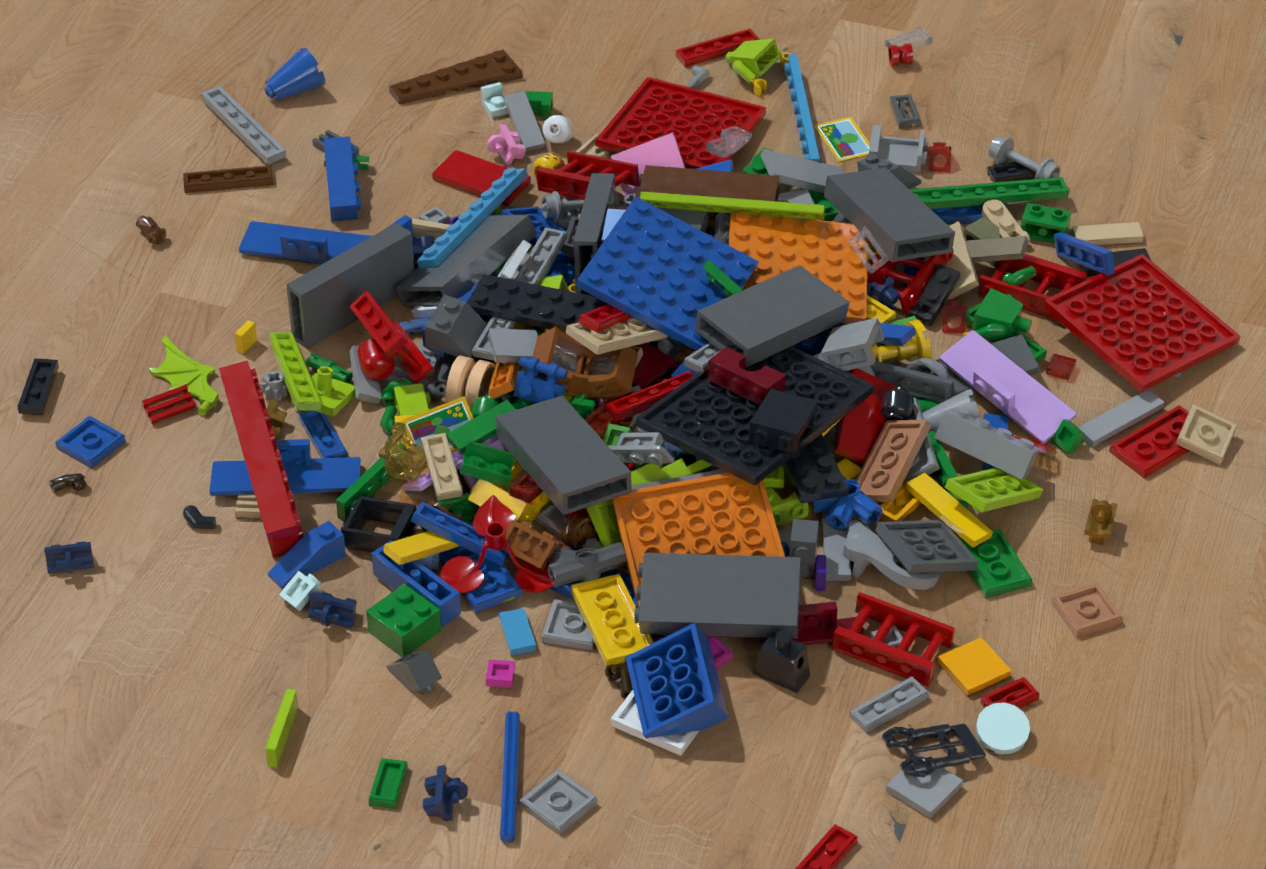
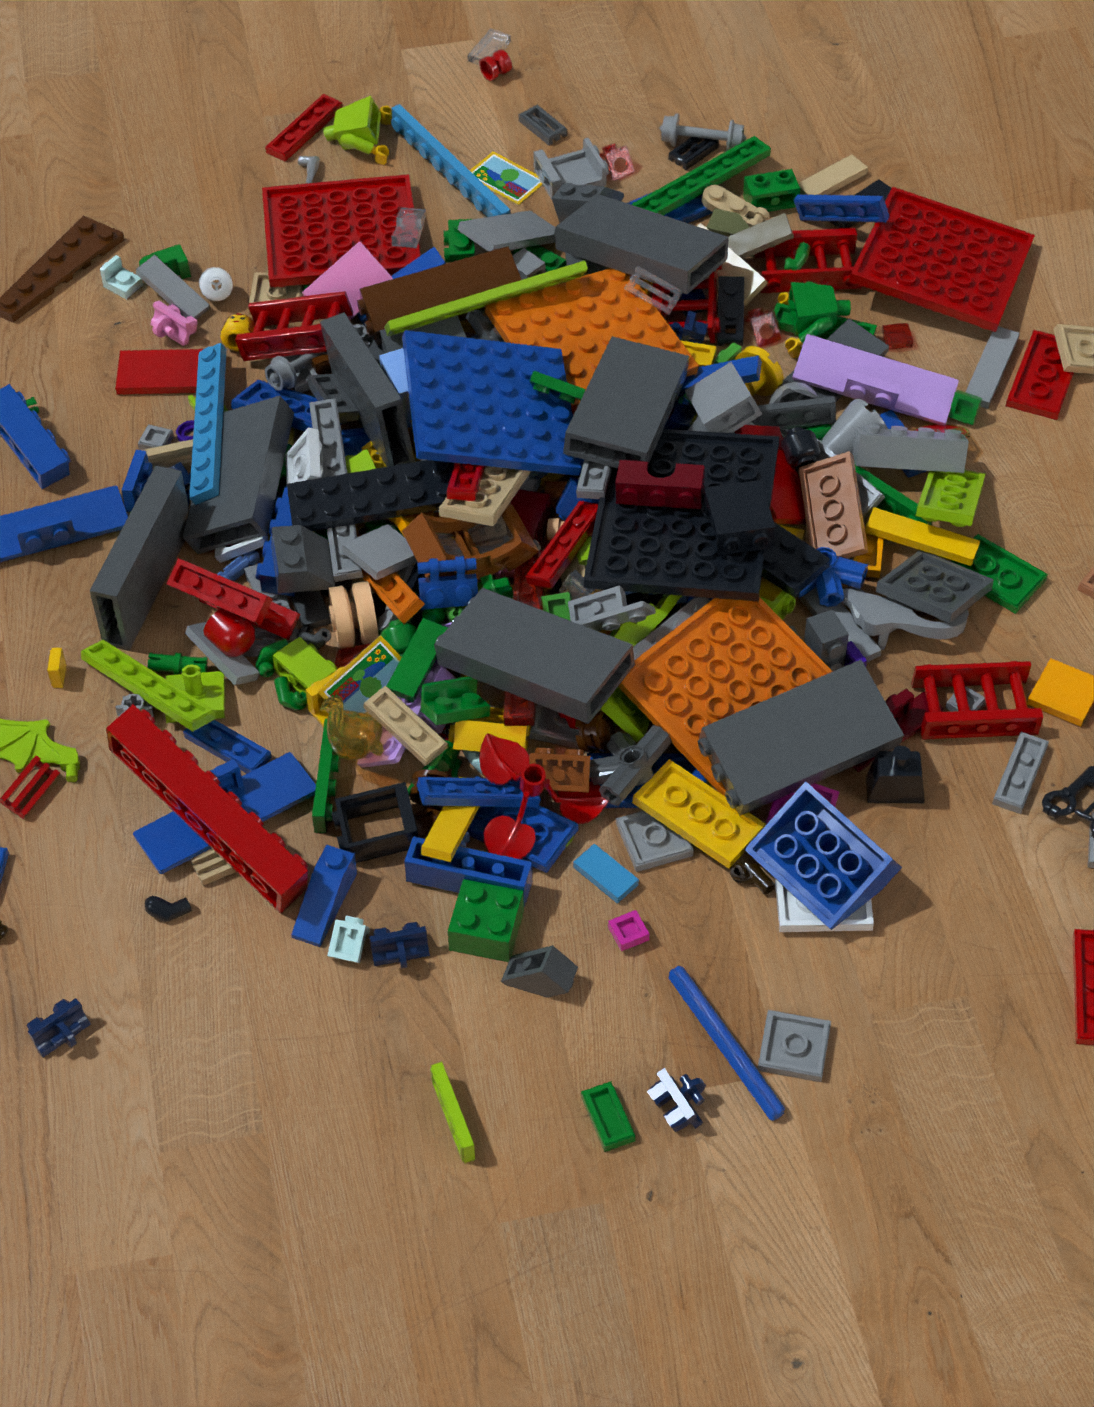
camera: 30 degrees left, 10 degrees up
(1100, 521) = (1064, 483): pearl gold hips -> none

